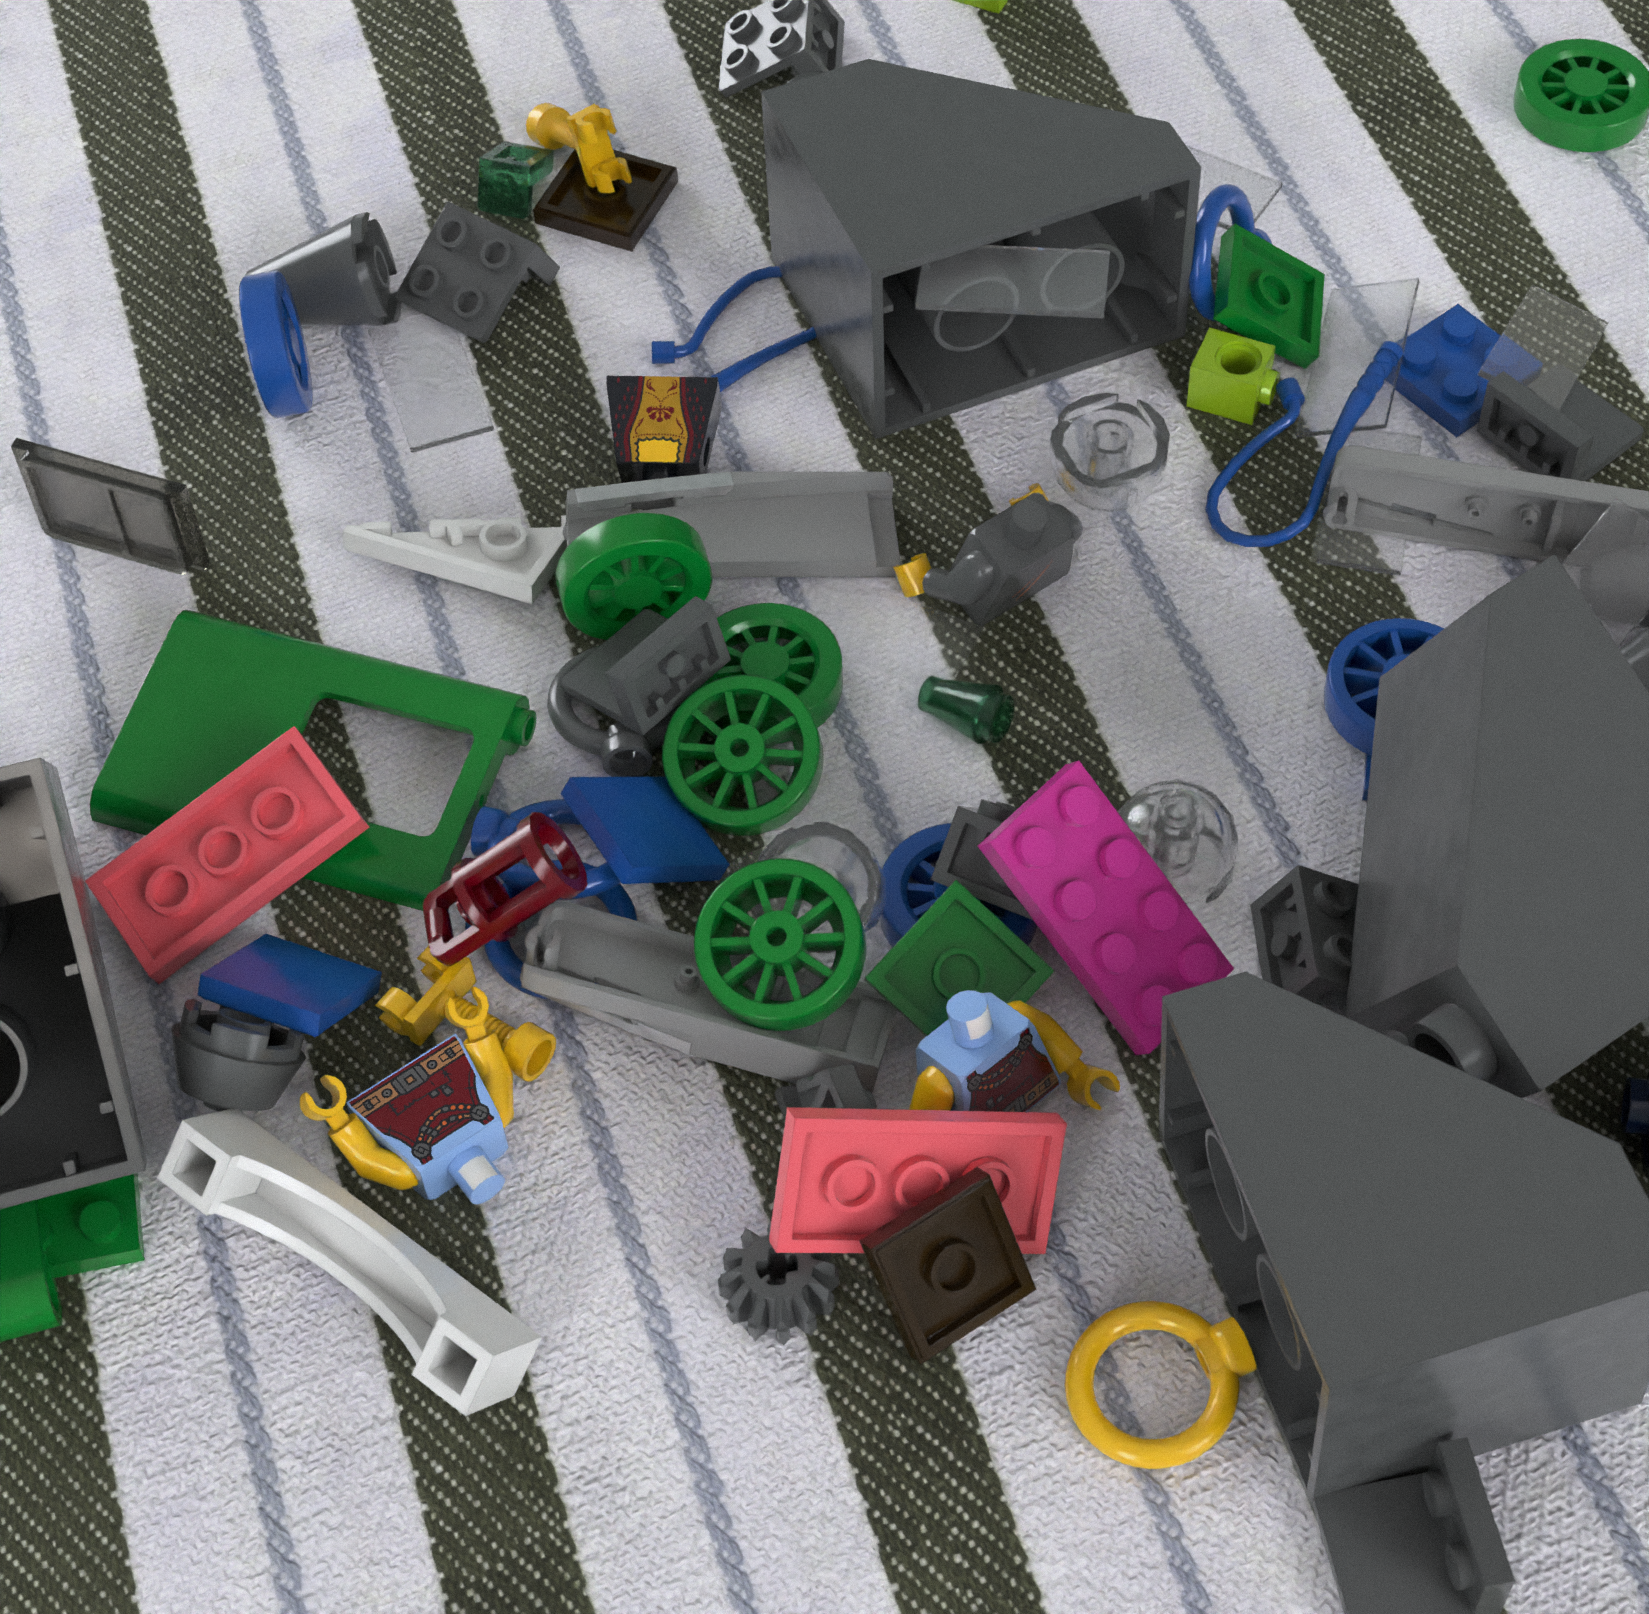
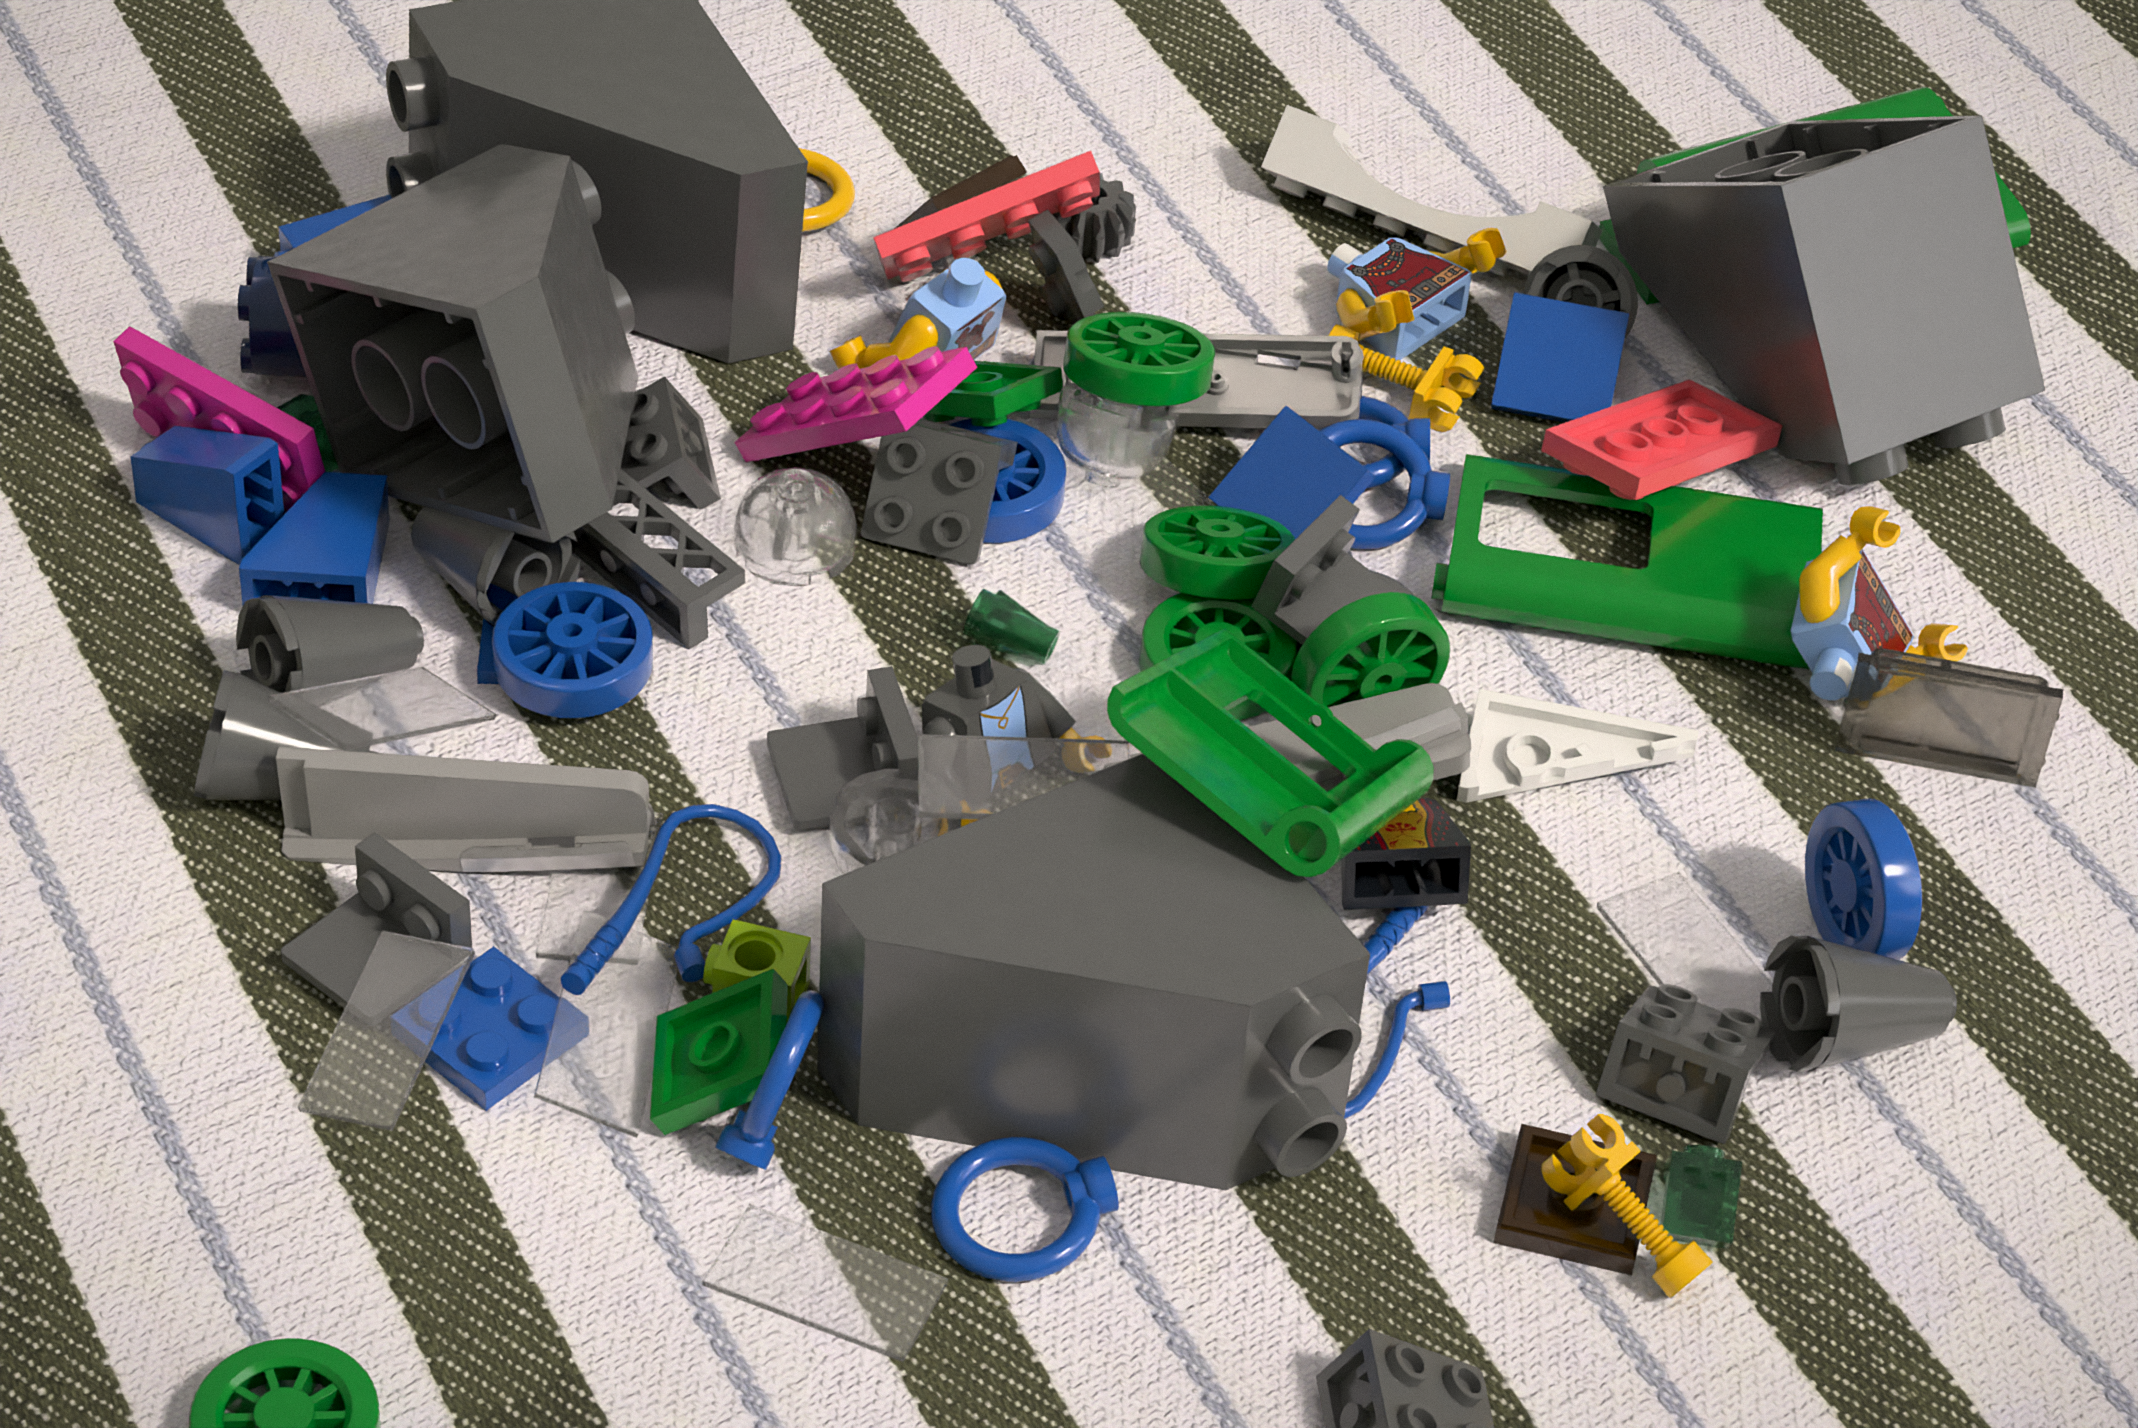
camera: 165 degrees right, 10 degrees down
(145, 595) = (1850, 612): none -> torso
(475, 885) = (1406, 392): dark red piece -> none
(802, 229) = (1183, 725): none -> green piece
(1141, 569) = (824, 756): none -> dark grey bracket
(1332, 782) = (655, 575): none -> dark grey fence

